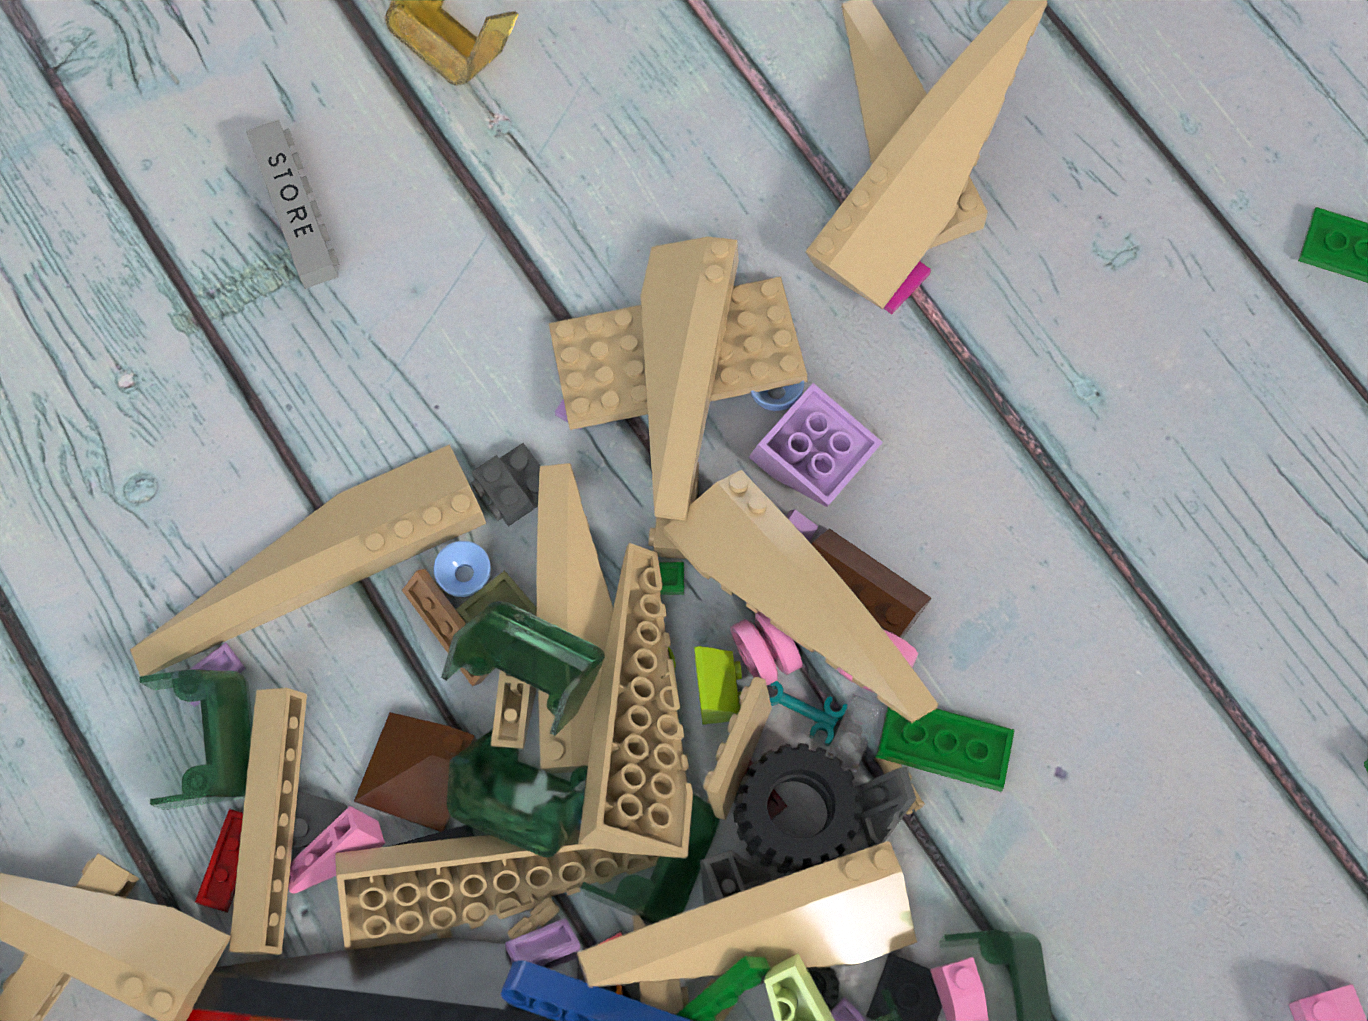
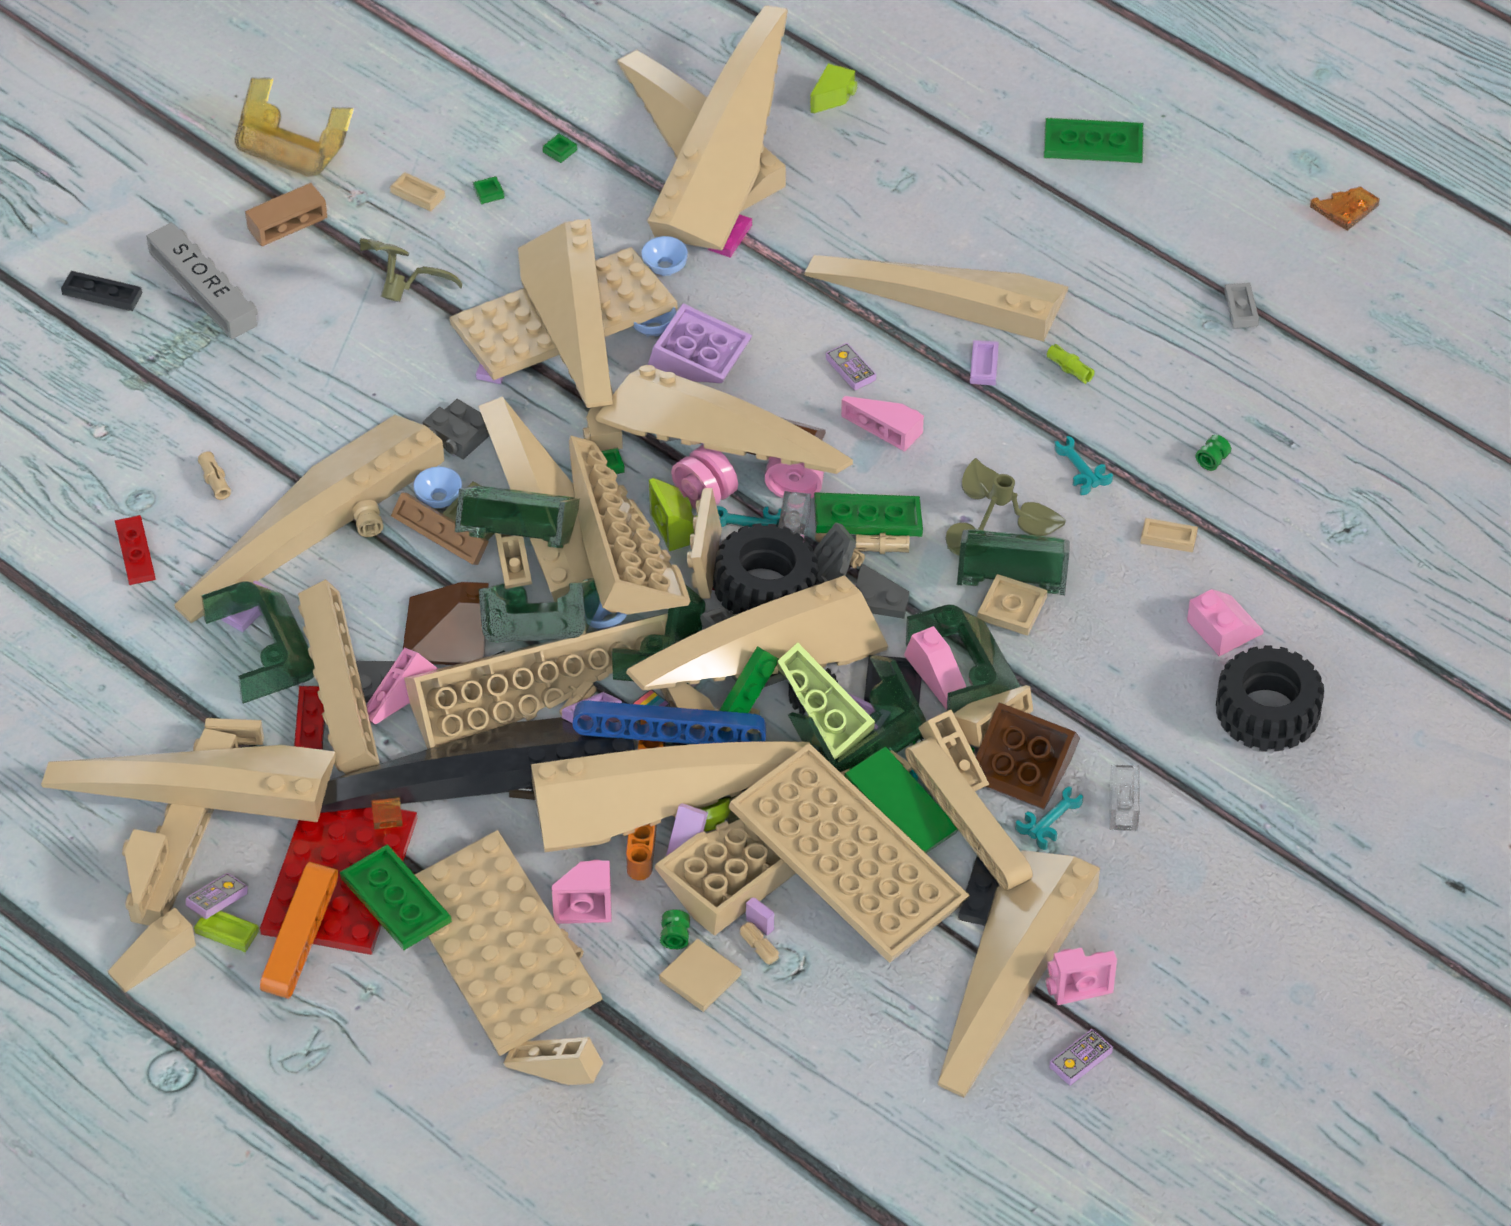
camera: 20 degrees left, 20 degrees down
(110, 560) = (135, 550): none -> red plate
(136, 858) = (247, 731): none -> tan tile
(182, 189) = (101, 290): none -> black plate
(225, 499) = (214, 475): none -> tan pin
(373, 590) = (368, 518): none -> tan wheel
(410, 134) = (286, 214): none -> medium nougat brick
(499, 262) = (394, 283): none -> olive plant
(566, 134) = (417, 191): none -> tan tile
(645, 152) = (488, 190): none -> green tile
(741, 112) = (559, 148): none -> green tile
(814, 288) = (664, 249): none -> light blue piece
(928, 862) = (882, 594): none -> dark grey wing
(951, 789) = (882, 543): none -> tan pin
(986, 513) = (850, 366): none -> tile
(1008, 610) = (886, 420): none -> bright pink slope
(1076, 105) = (833, 88): none -> lime slope
(1081, 927) = (1012, 604): none -> tan plate
(1098, 728) = (984, 482): none -> olive plant
(1107, 860) = (1014, 556): none -> clear green windscreen
(1146, 548) = (984, 362): none -> lavender tile
(1172, 449) = (985, 297): none -> tan wedge
(1227, 756) = (1087, 476): none -> teal bar
(1248, 580) = (1070, 363): none -> lime pin
(1300, 869) = (1169, 535): none -> tan tile

